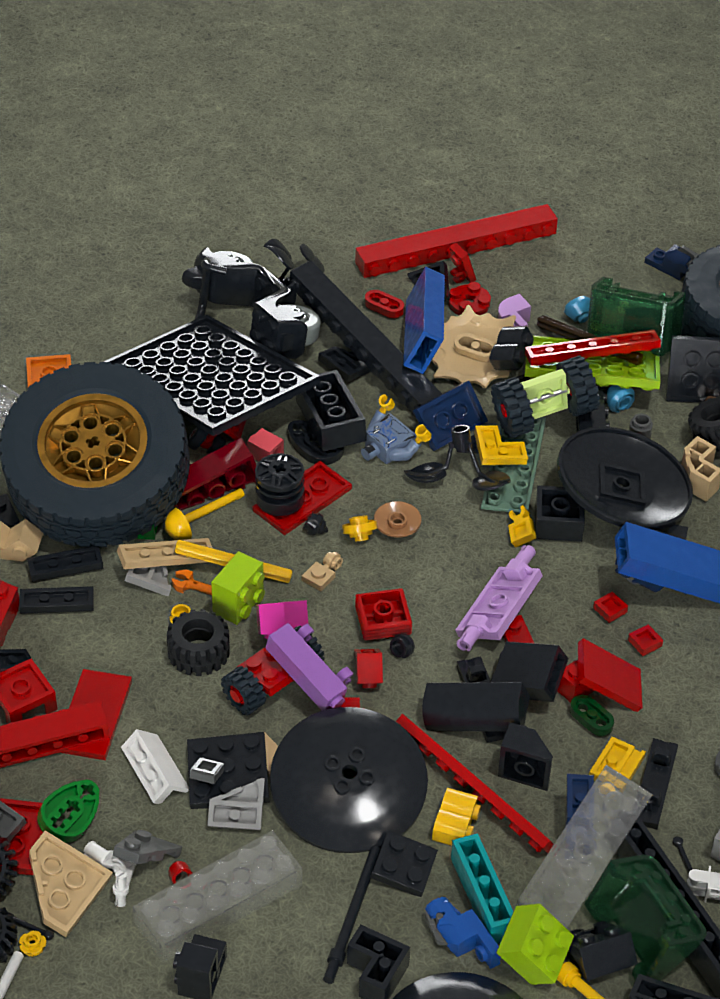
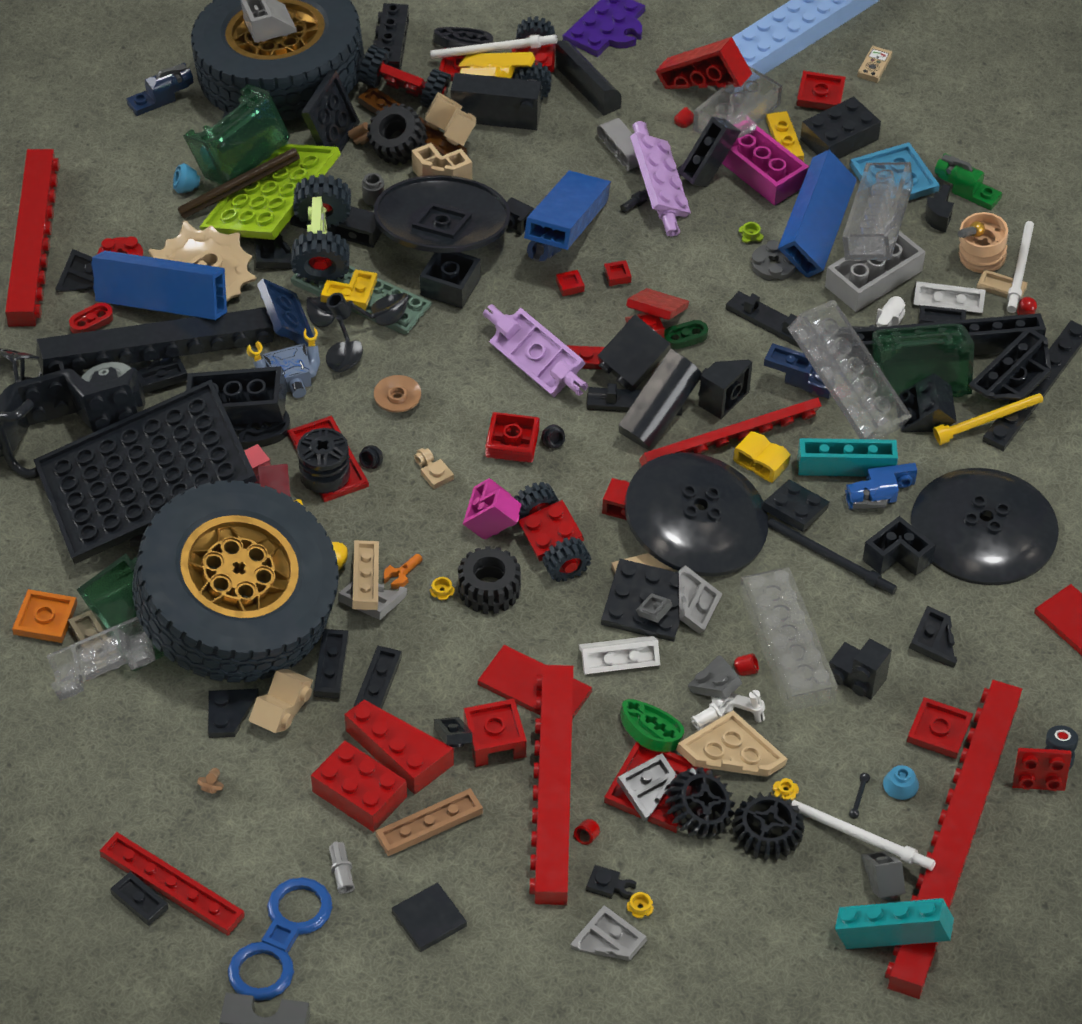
camera: 70 degrees left, 5 degrees up
(48, 933) = (777, 777): black hinge -> none
(222, 558) = (396, 529): yellow axle -> none
(238, 588) = (440, 529): lime brick -> none
(307, 668) = (578, 496): medium lavender brick -> none
(359, 527) = (395, 423): yellow plate -> none
(368, 667) = (568, 464): red slope -> none
(463, 265) = (78, 237): red plate -> none
(510, 348) = (232, 235): black brick -> none
(515, 306) = (162, 227): lavender brick -> none
(522, 529) = (451, 311): yellow plate -> none
(535, 944) = (920, 436): lime brick -> none
(593, 347) = (273, 176): red plate -> none
(620, 757) = (744, 336): yellow plate -> none

